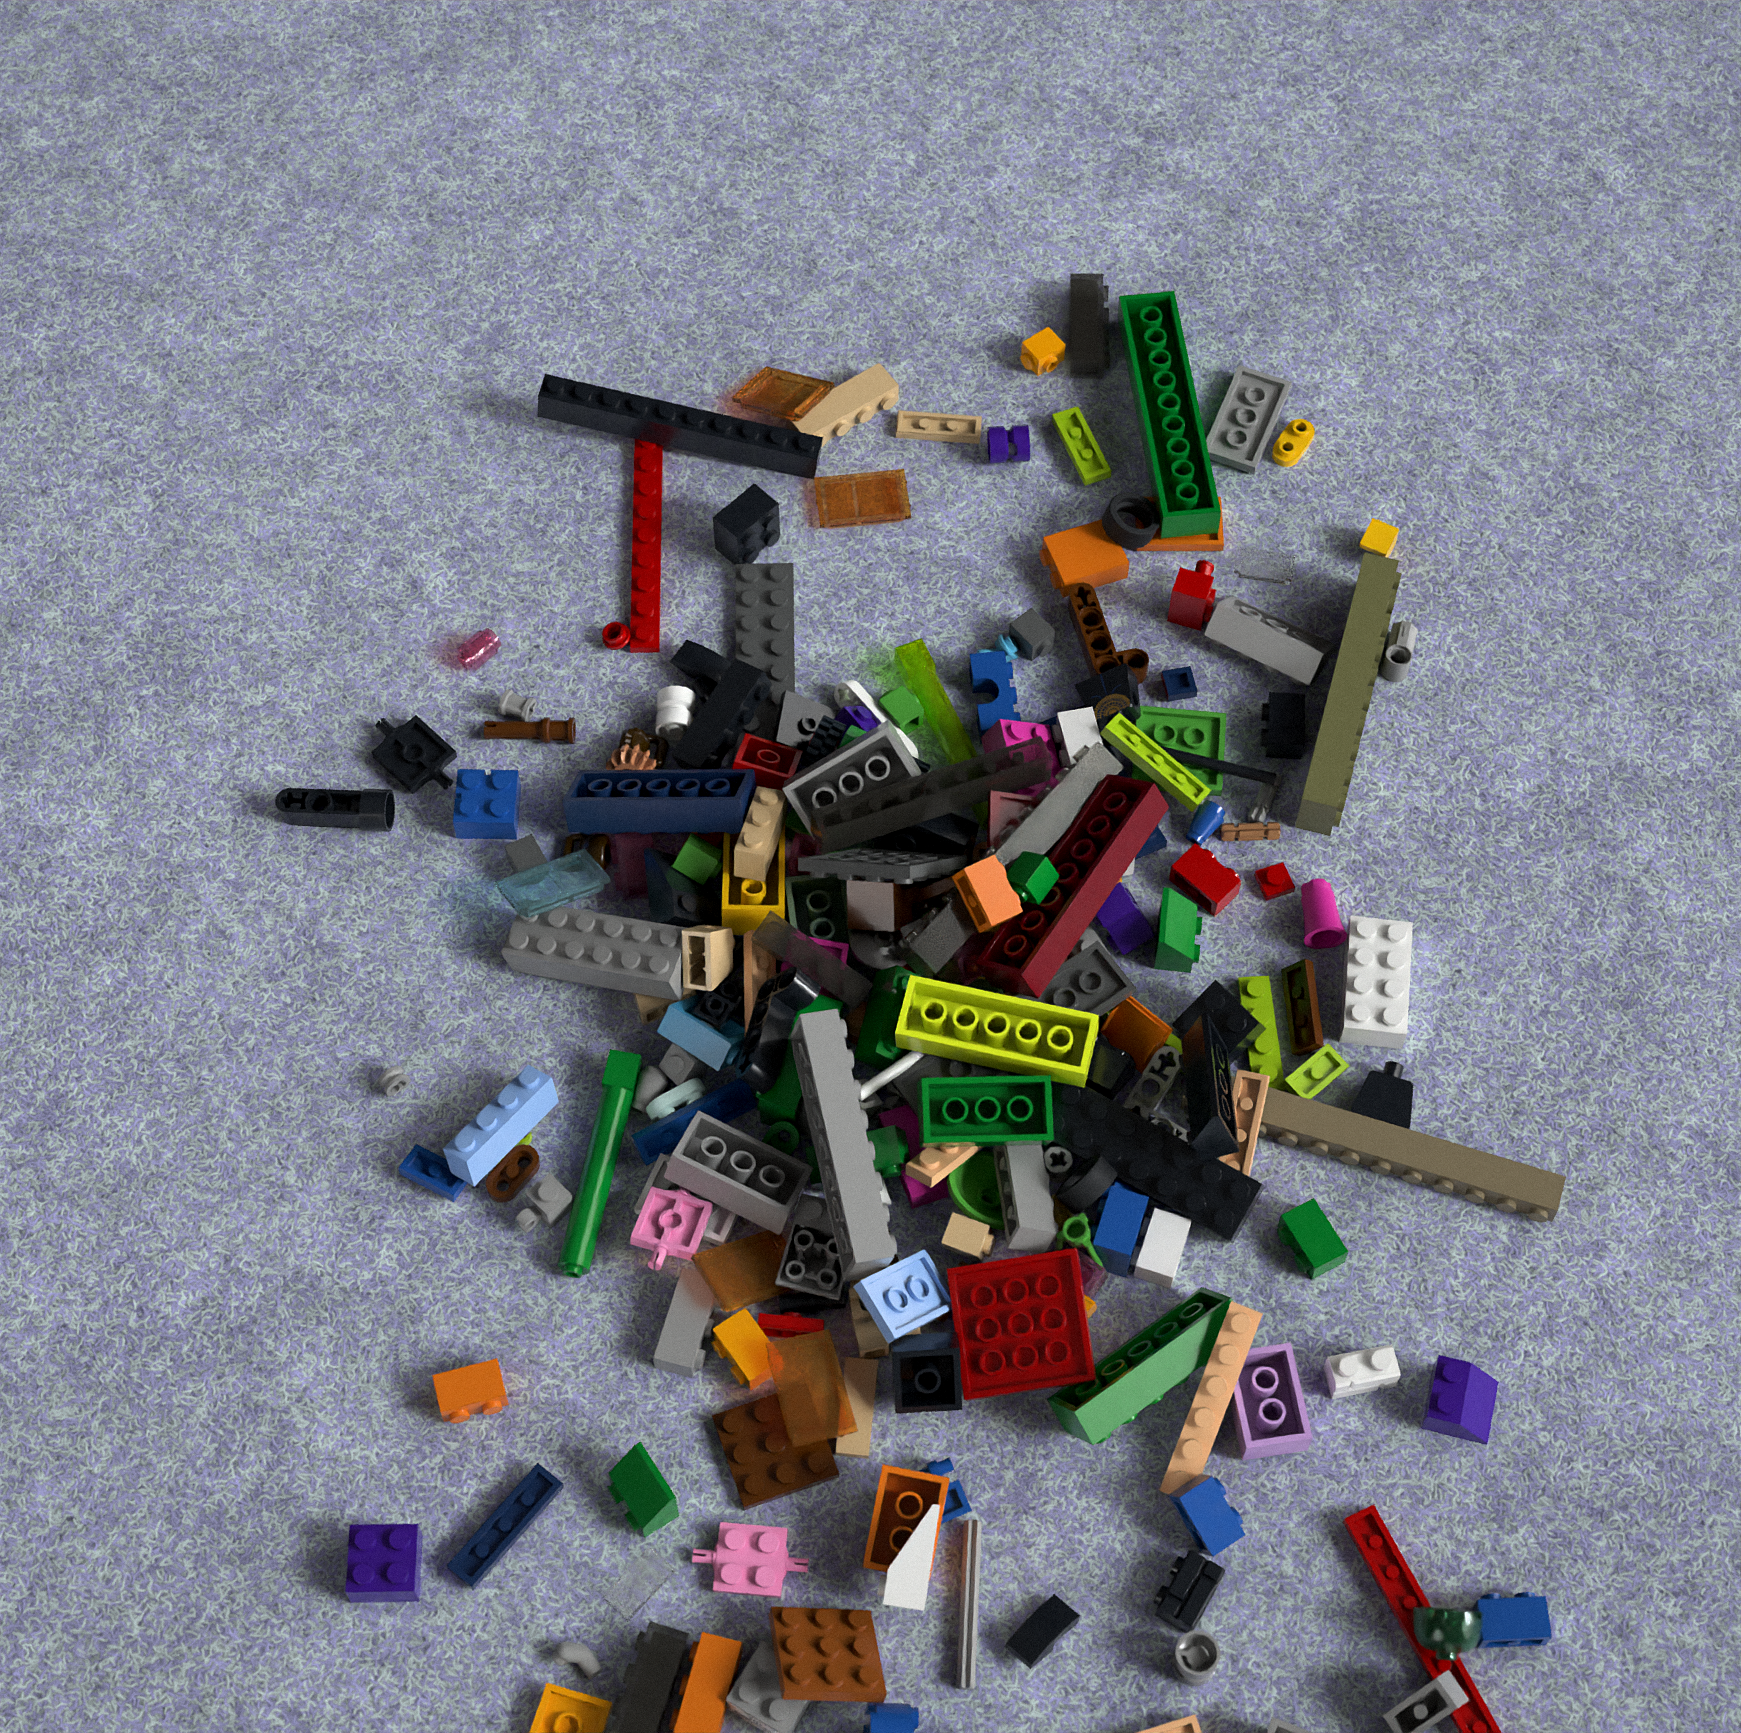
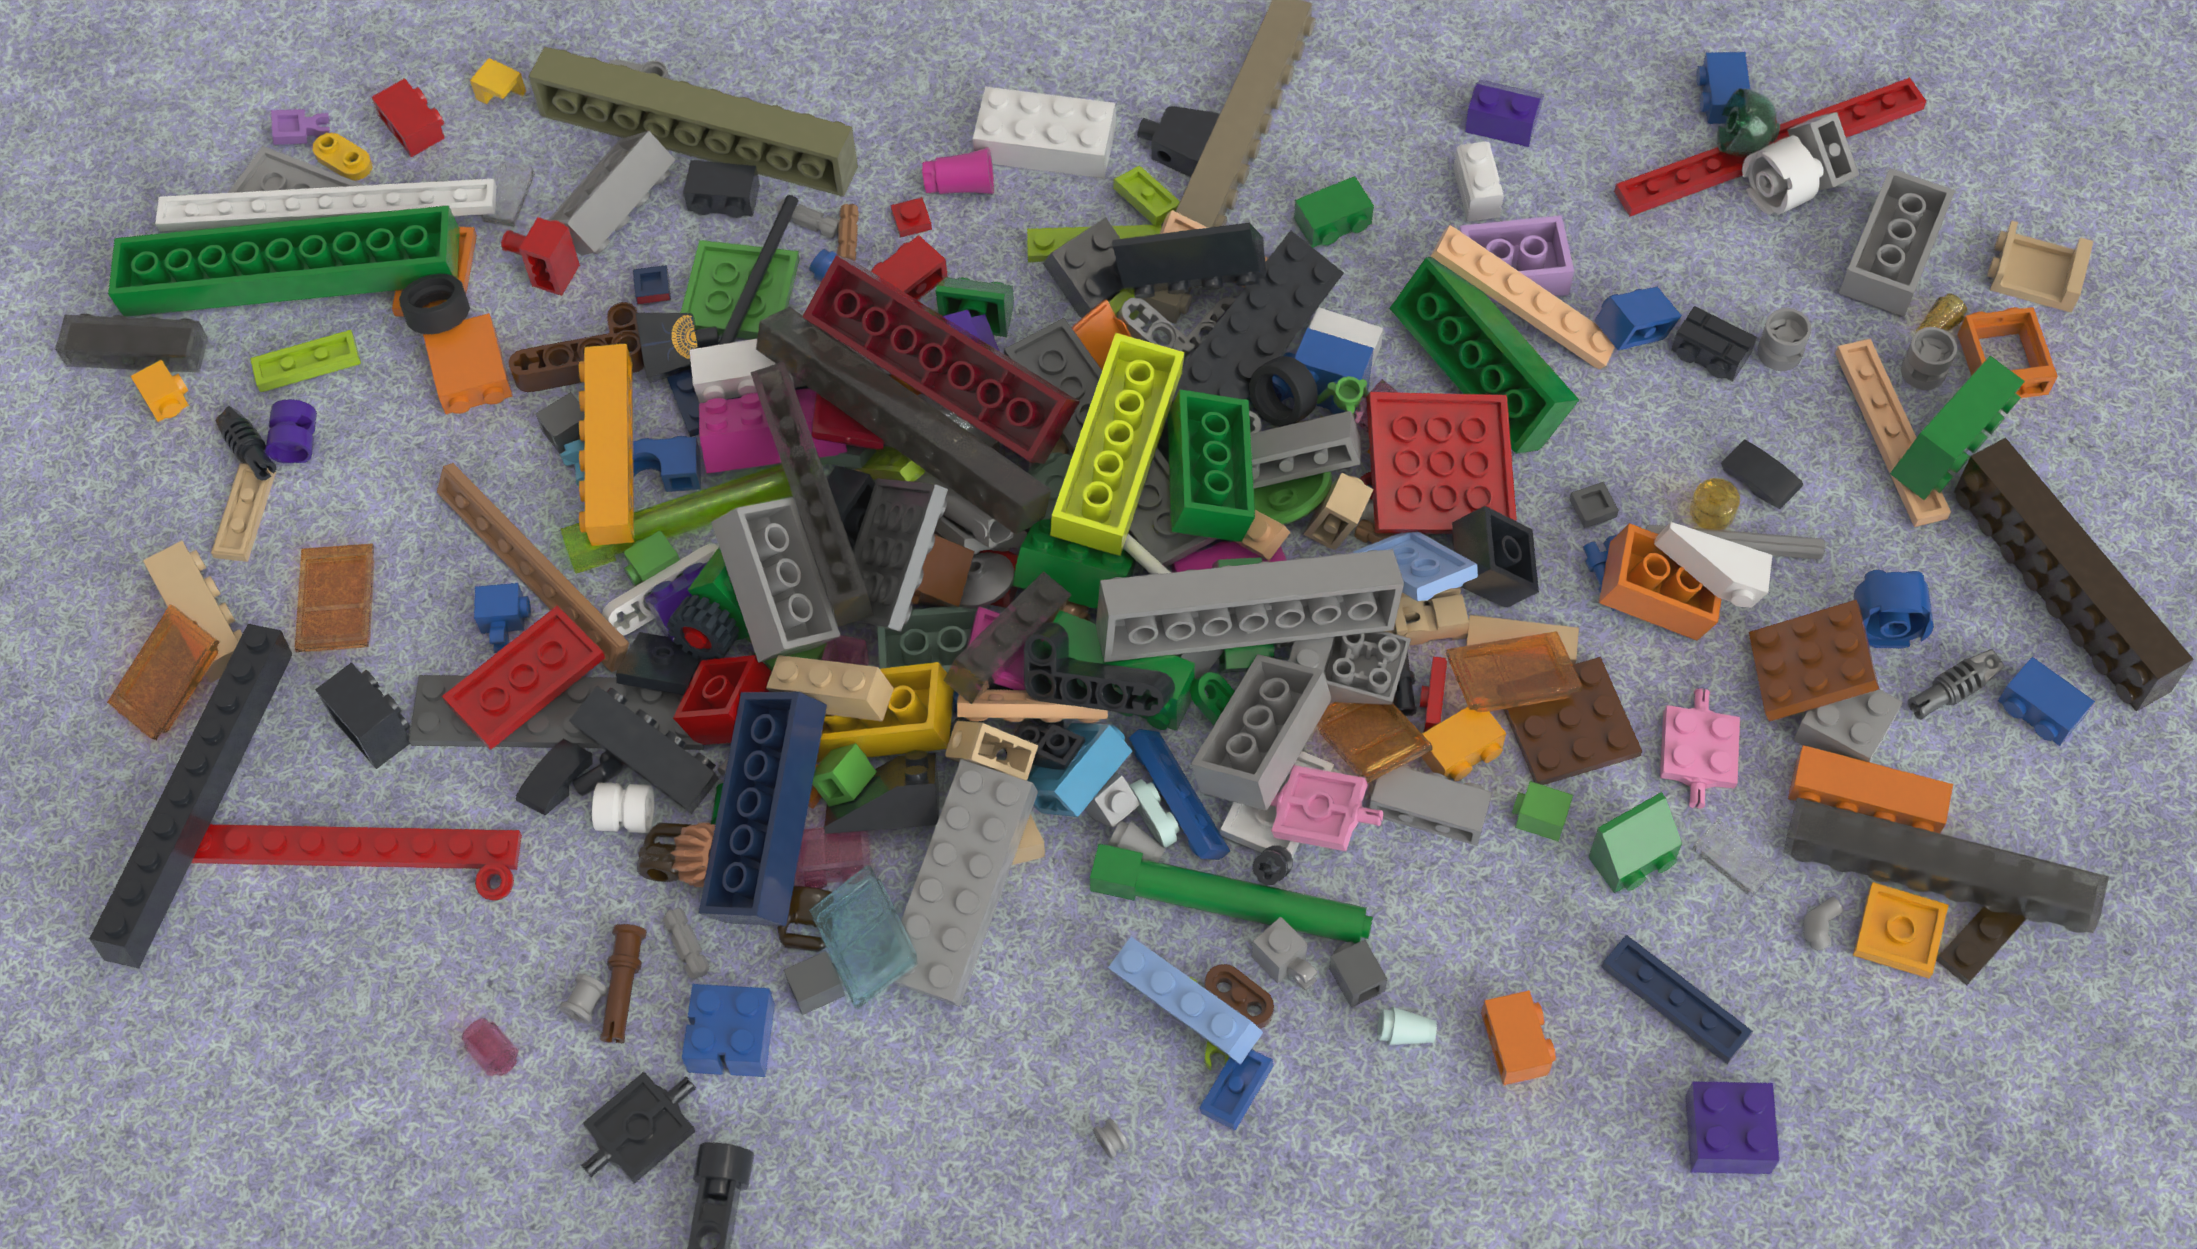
camera: 85 degrees left, 0 degrees up
(483, 1302) = (1404, 1027): none -> light aqua cone
(531, 1263) = (1357, 972): none -> dark grey brick
(564, 771) = (686, 943): none -> light grey axle
(623, 1191) = (1282, 859): none -> black bush
(681, 1417) = (1542, 810): none -> bright green brick
(784, 629) = (523, 677): none -> red plate
(850, 609) = (499, 611): none -> blue brick
(893, 625) = (529, 562): none -> medium nougat tile
(987, 893) = (960, 426): orange brick -> none
(997, 414) = (245, 442): none -> black hinge
(997, 658) = (608, 445): none -> light orange brick
(1000, 1473) = (1593, 504): none -> dark grey plate
(1002, 1592) = (1714, 504): none -> clear yellow head
(1032, 877) = (938, 389): green brick -> none
(1155, 762) = (764, 300): lime plate -> none
(1228, 436) = (260, 207): none -> white plate
(1302, 1007) = (1068, 200): plate -> none
(1317, 402) = (293, 126): none -> medium lavender plate
(1335, 482) = (409, 117): none -> red brick
(1394, 1665) = (1782, 175): none -> white brick

